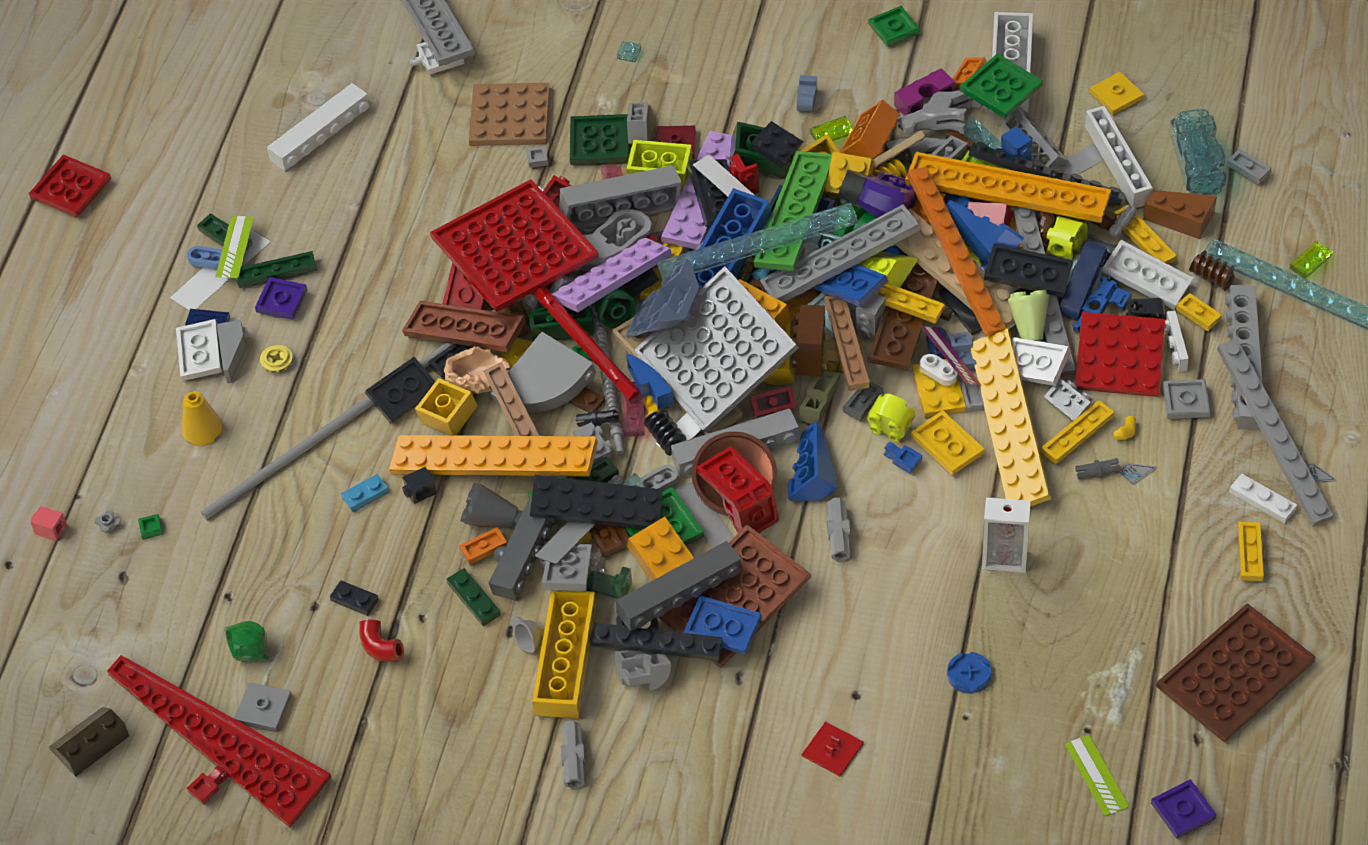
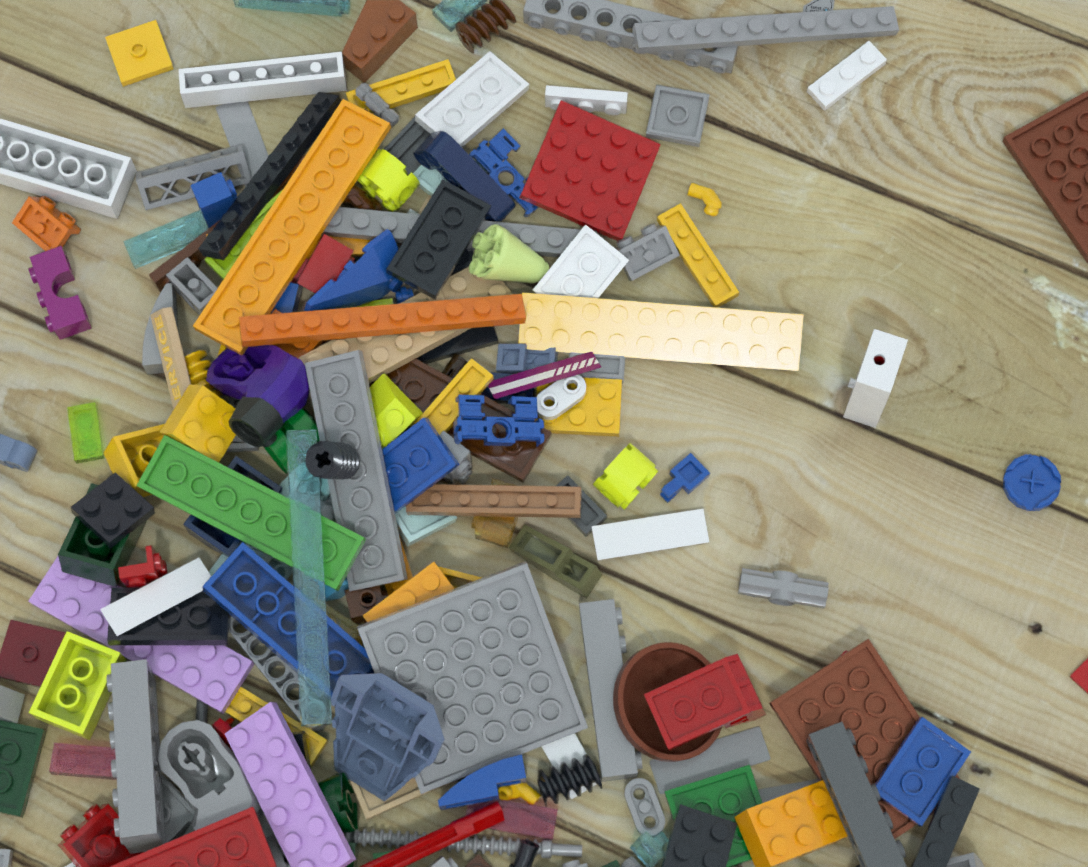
camera: 80 degrees left, 20 degrees up
(772, 401) = (564, 618): dark red brick -> none
(809, 338) = (473, 546): reddish brown brick -> none
(814, 469) = (679, 598): blue wedge -> none
(836, 228) = (332, 460): none -> black piece
(855, 446) = (650, 534): none -> white sticker
(871, 131) = (123, 381): orange brick -> none
(901, 342) = (474, 428): none -> blue piece
(939, 113) = (112, 283): light grey animal -> none
(947, 442) = (674, 417): yellow plate -> none
(1001, 85) = (105, 186): green plate -> none
(1097, 468) = (760, 248): dark grey pin -> none
(1135, 472) = (768, 207): light grey sticker -> none
(1146, 308) = (528, 120): black piece -> none
(1198, 312) = (544, 61): yellow plate -> none
(1250, 551) = (925, 111): yellow plate -> none

